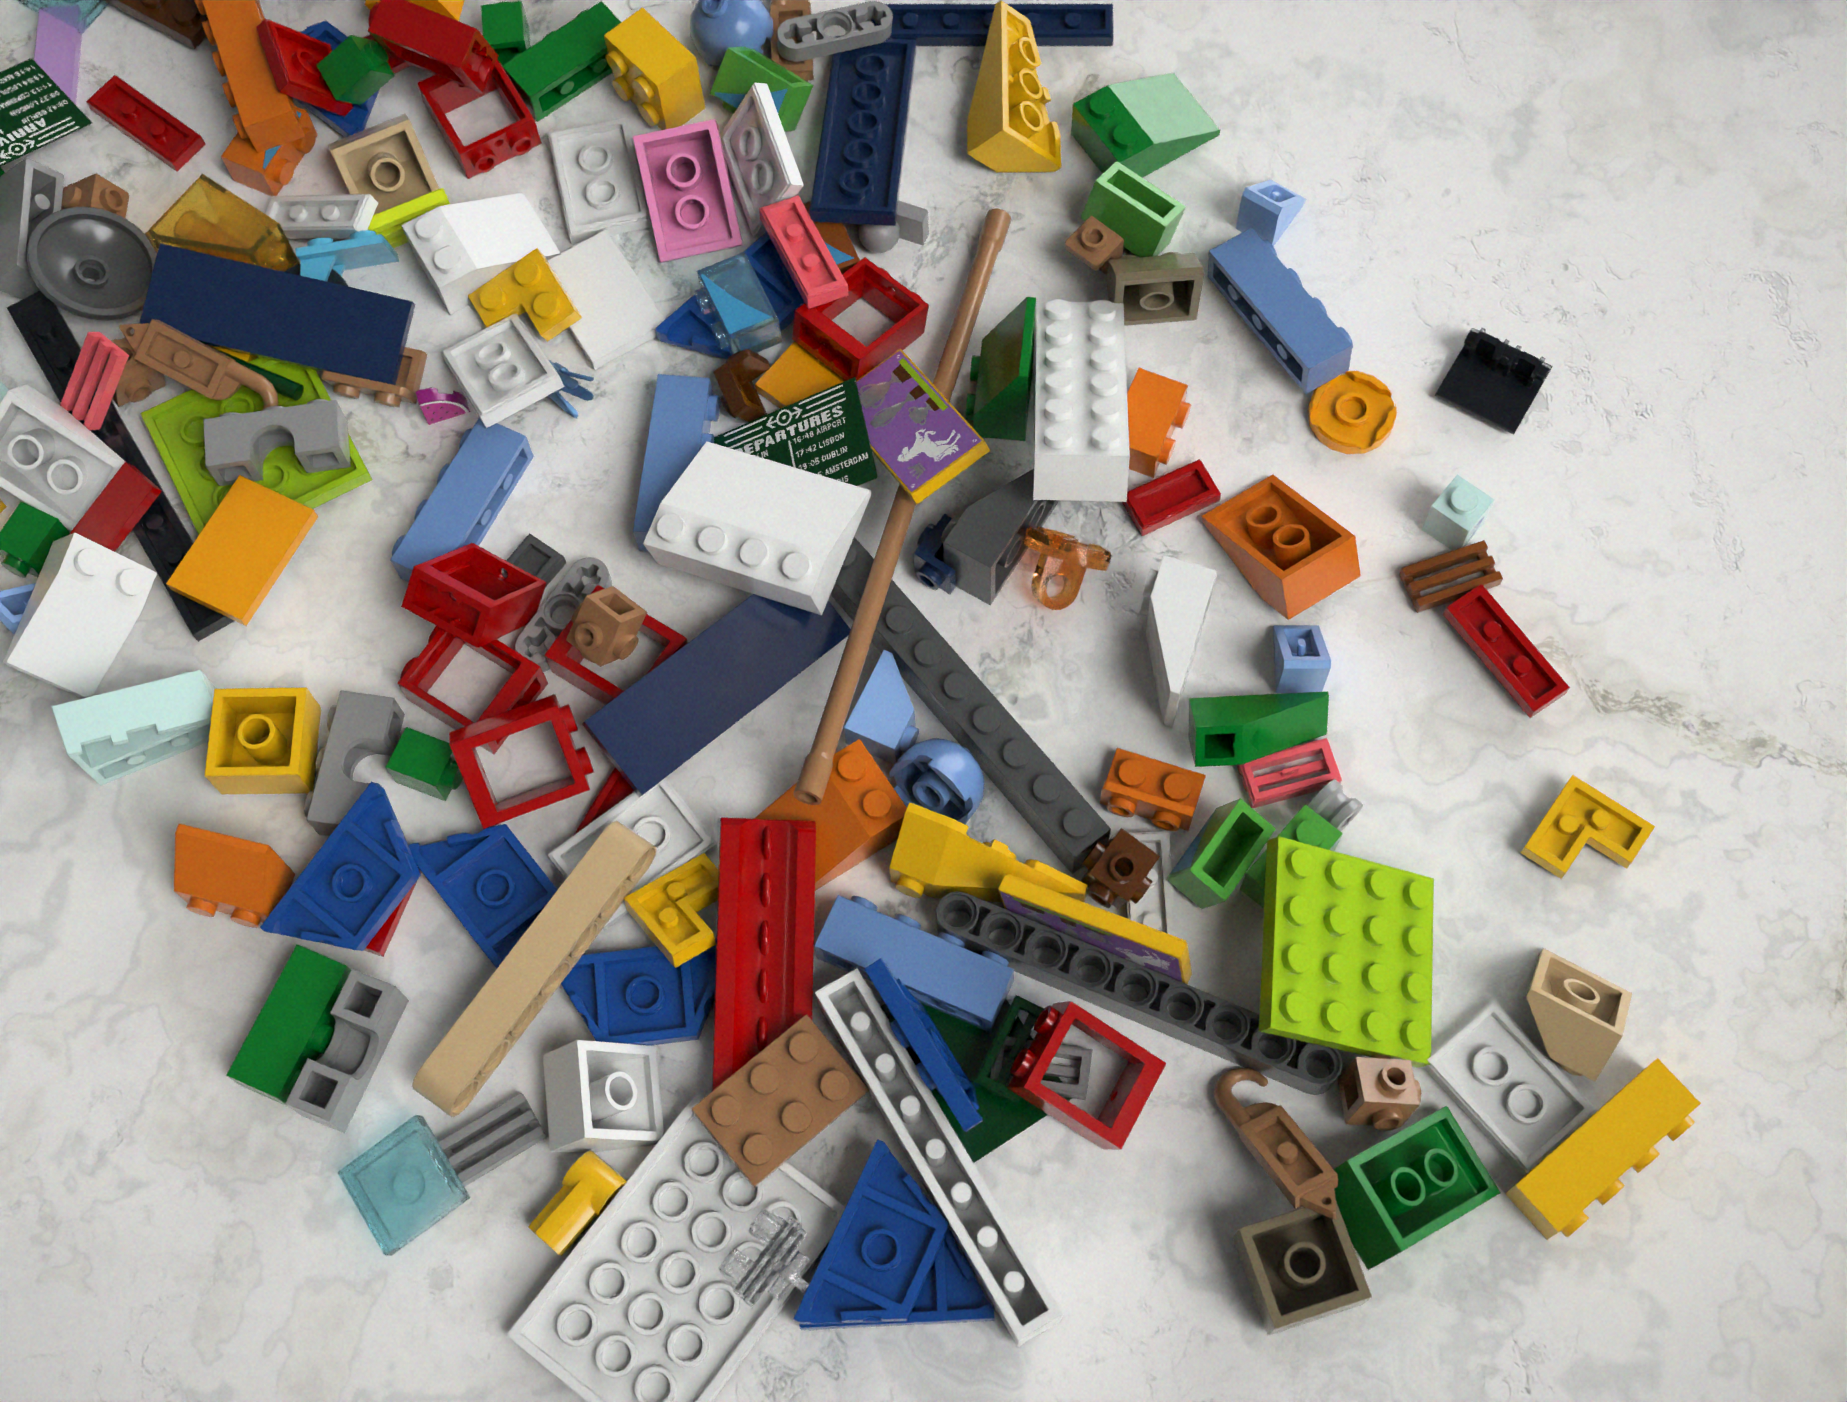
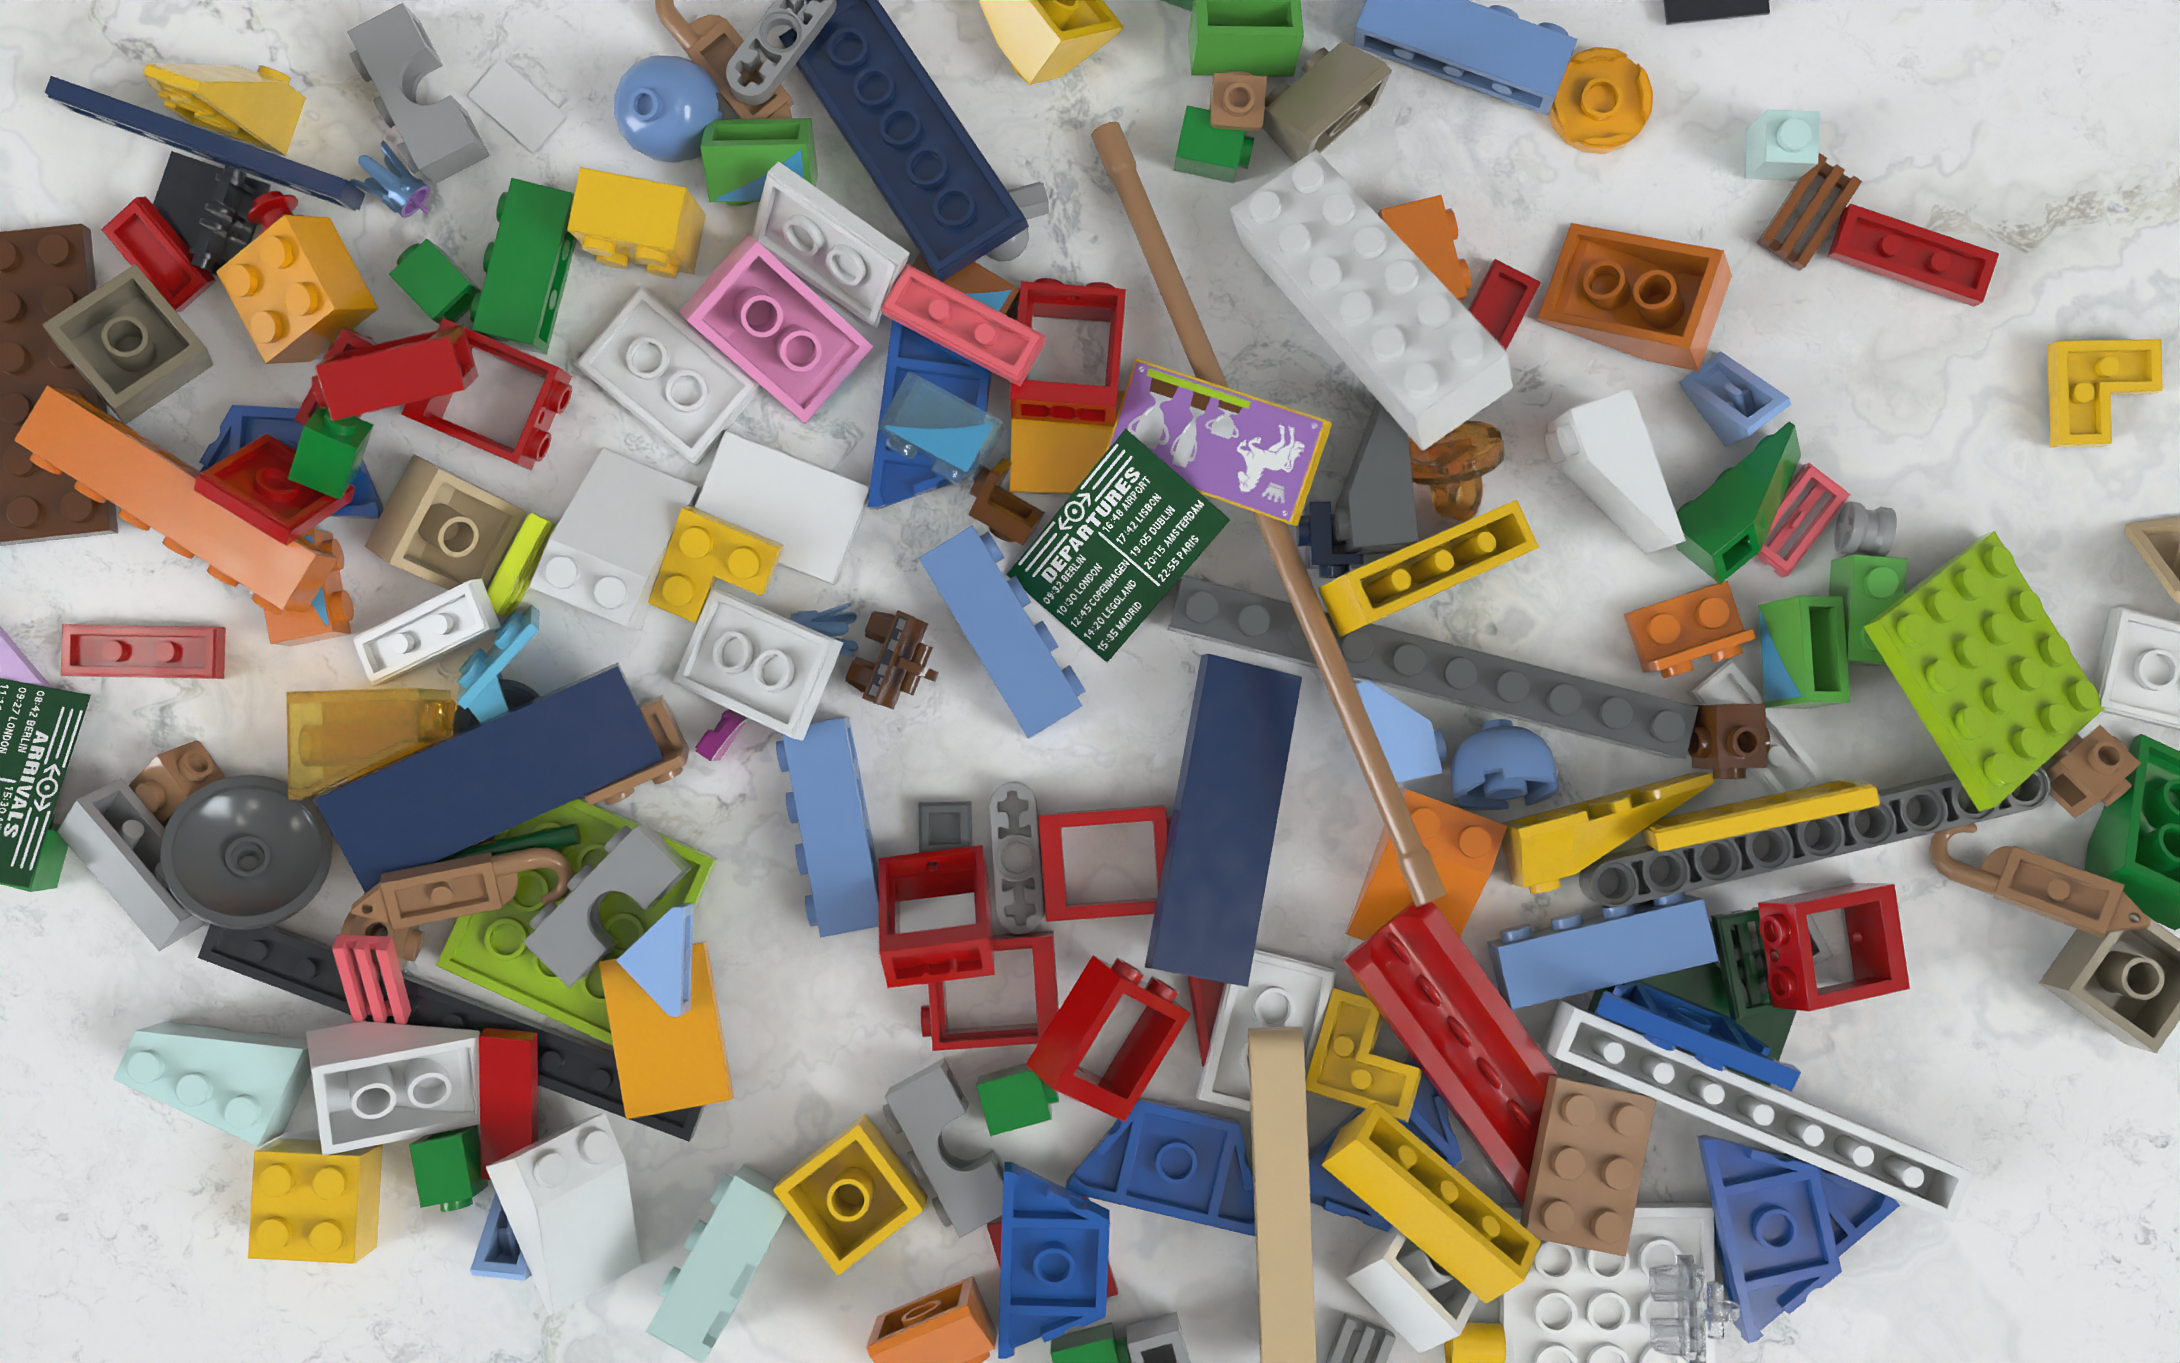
camera: 40 degrees left, 20 degrees up
(281, 492) = (664, 960): none -> light blue slope
(590, 433) = (899, 662): none -> reddish brown hips
(606, 626) = (1098, 864): medium nougat brick -> none
(643, 1032) = (1431, 1203): none -> yellow brick
(758, 526) = (1156, 652): white slope -> none
(989, 601) = (1427, 568): none -> yellow brick
(1004, 376) = (1262, 312): green slope -> none
(1056, 268) = (1211, 150): none -> green brick

